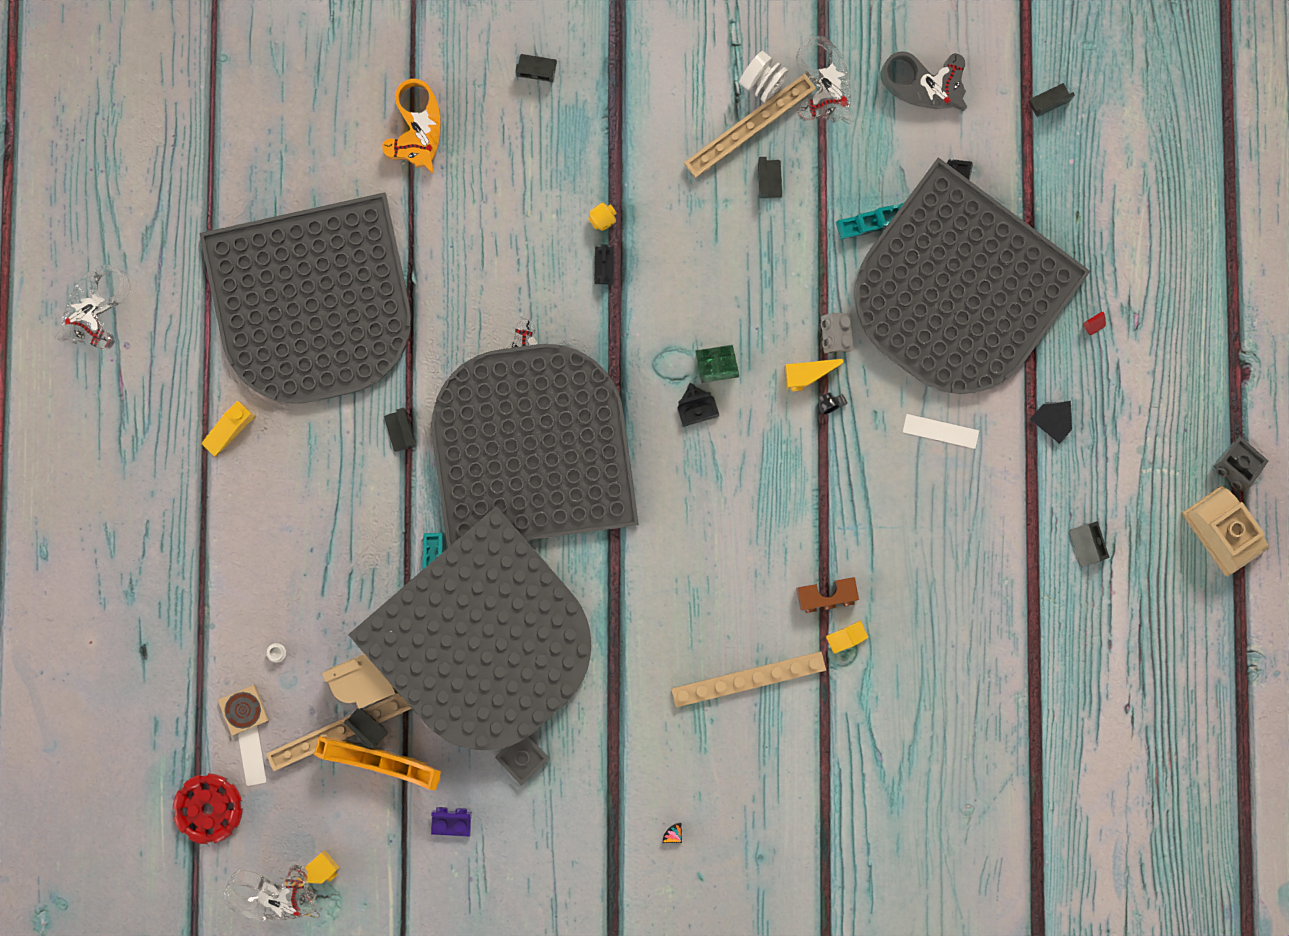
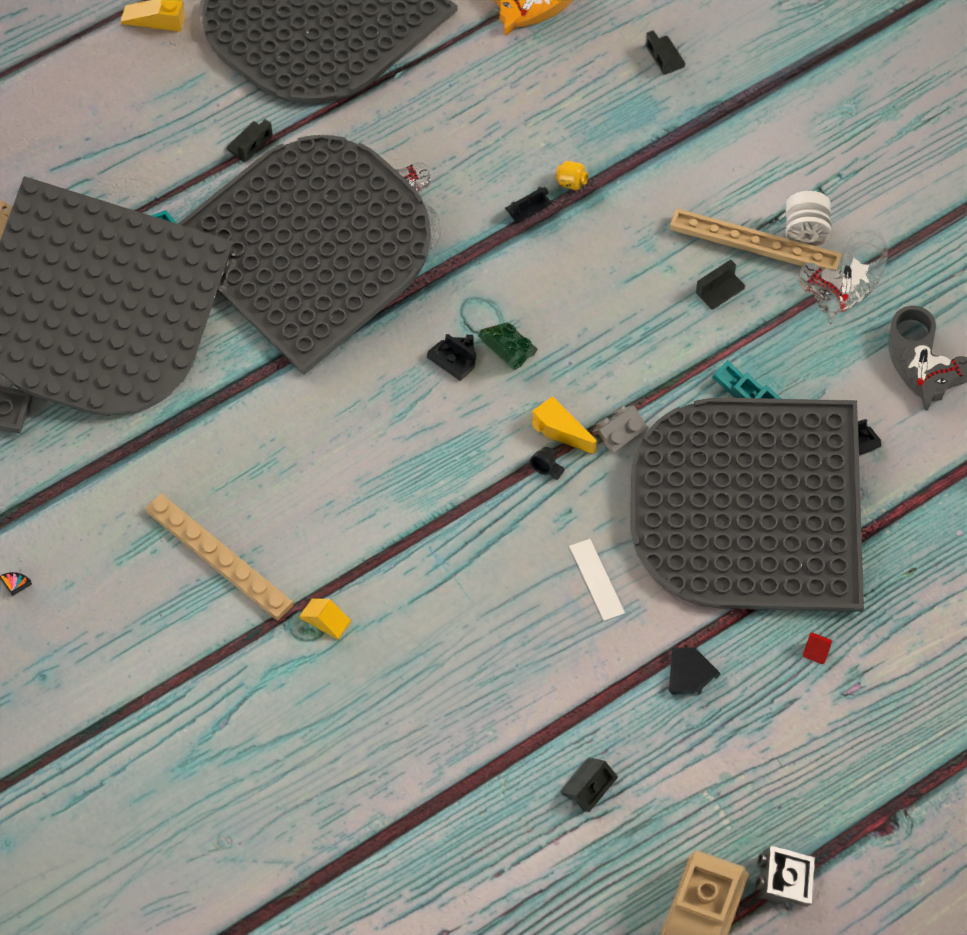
camera: 55 degrees right, 25 degrees down
(845, 593) = (366, 585): dark orange arch -> none

